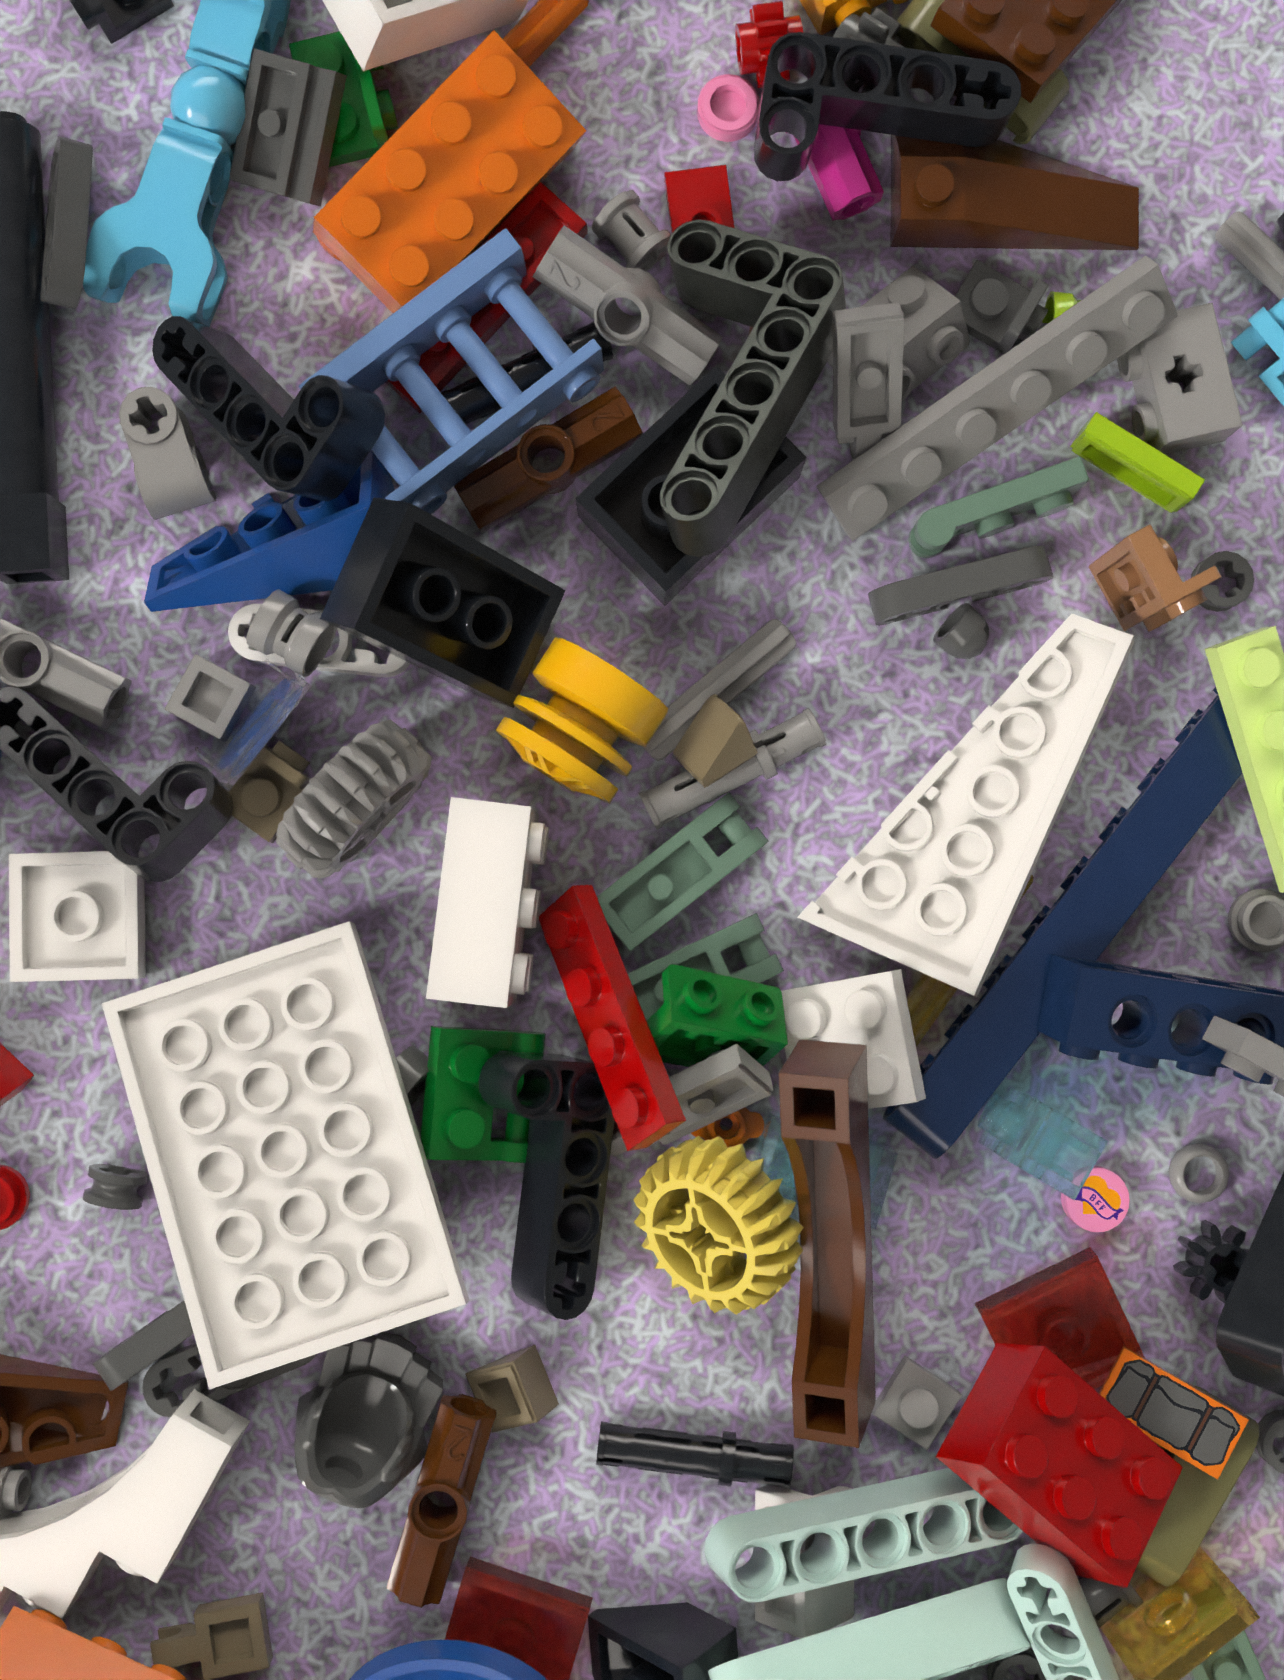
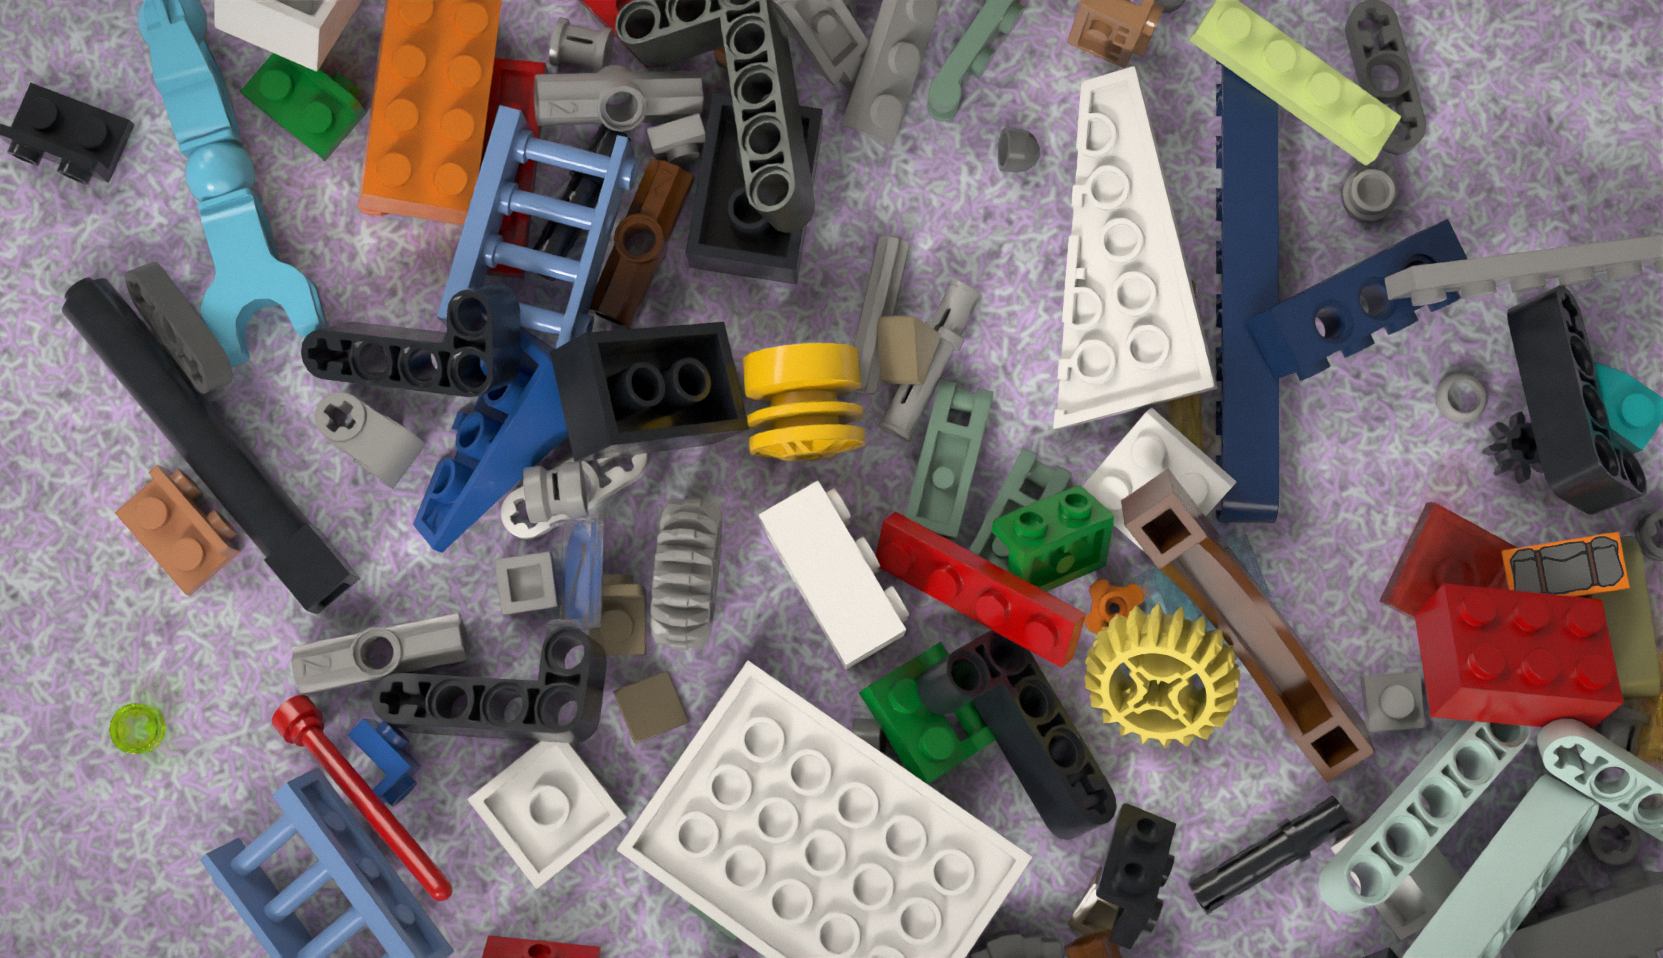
camera: 35 degrees left, 5 degrees down
(236, 894) = (650, 707): none -> dark tan slope
(287, 127) = (286, 149): dark grey plate -> none
(553, 1385) = (1135, 871): none -> black bracket
(652, 387) = (678, 140): none -> light grey plate
(712, 1091) = (1088, 586): light grey hinge -> none
(975, 579) = (996, 109): dark grey beam -> none
(1040, 1141) = (1335, 452): clear light blue brick -> none
(1099, 1203) = (1405, 468): bright pink tile -> none

